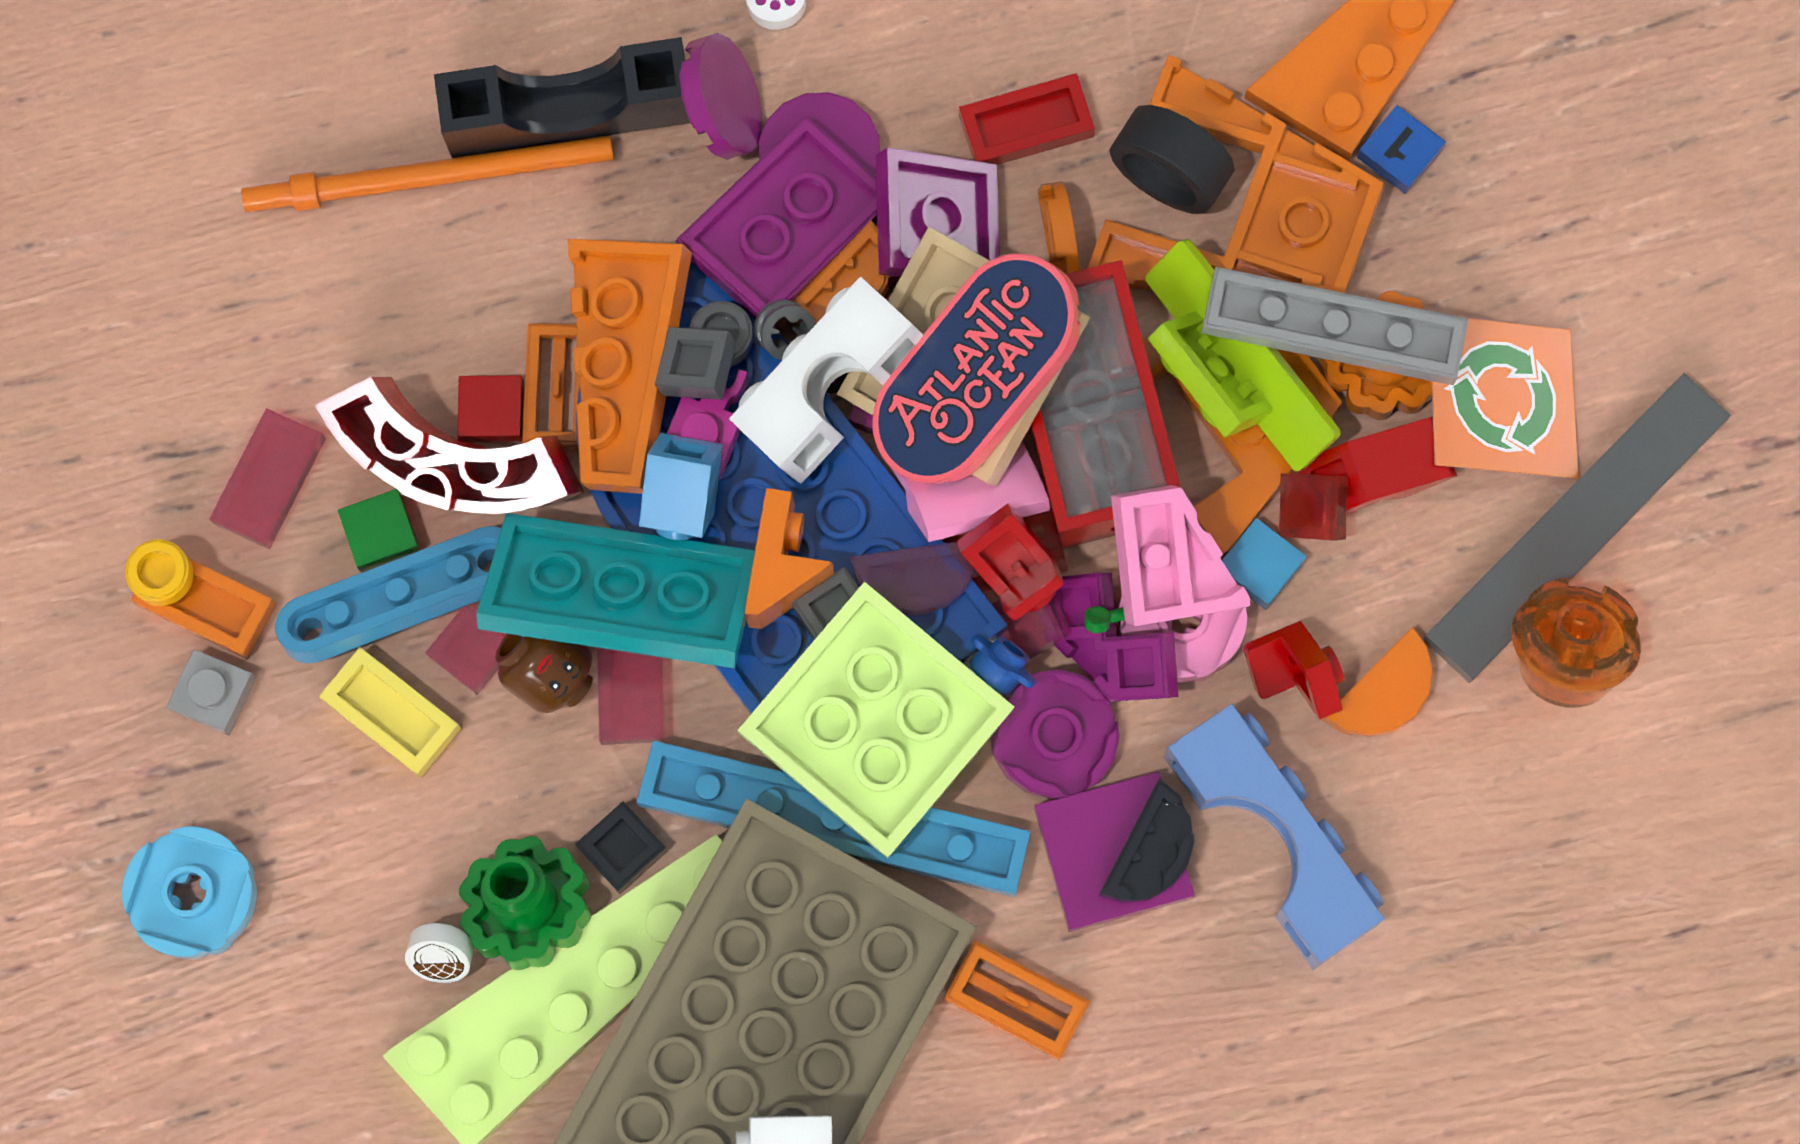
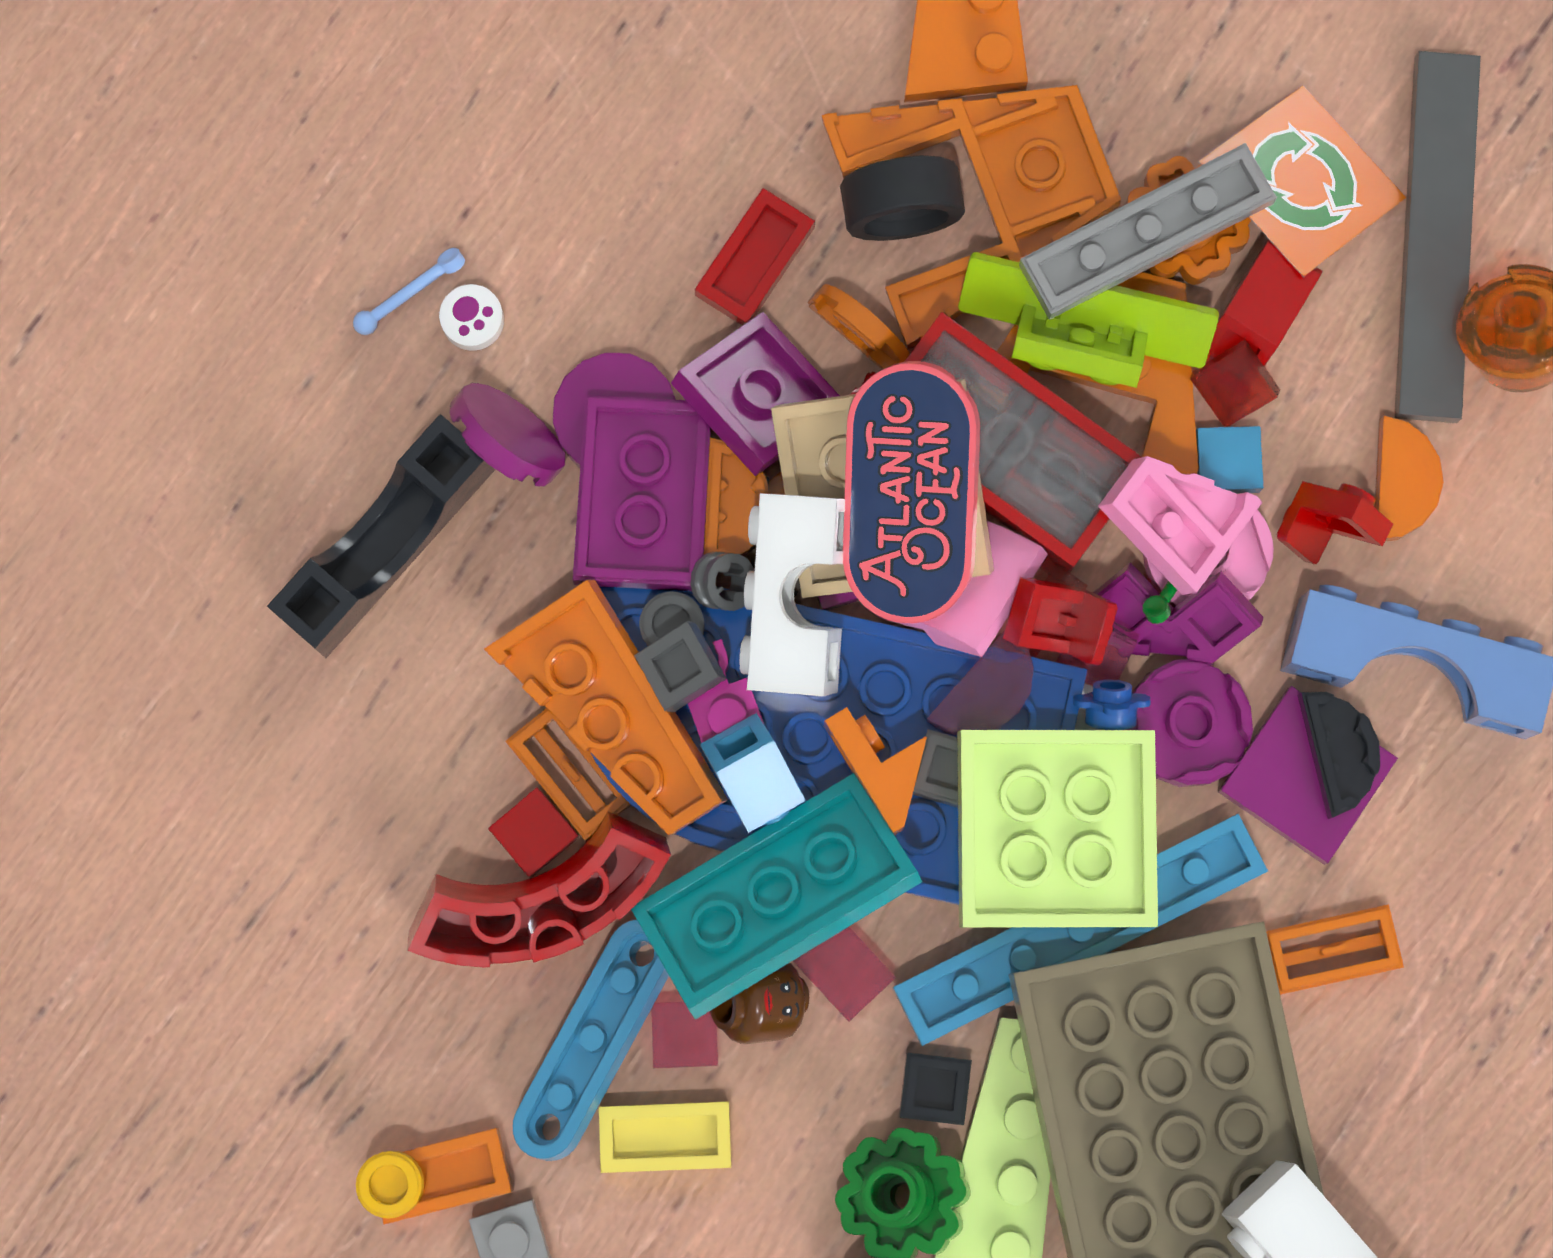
camera: 45 degrees left, 5 degrees up
(267, 478) = (404, 1035): clear pink tile -> none
(307, 190) = (233, 780): orange bar -> none
(378, 530) = (530, 1002): green tile -> none
(1401, 149) = (1060, 46): blue tile -> none

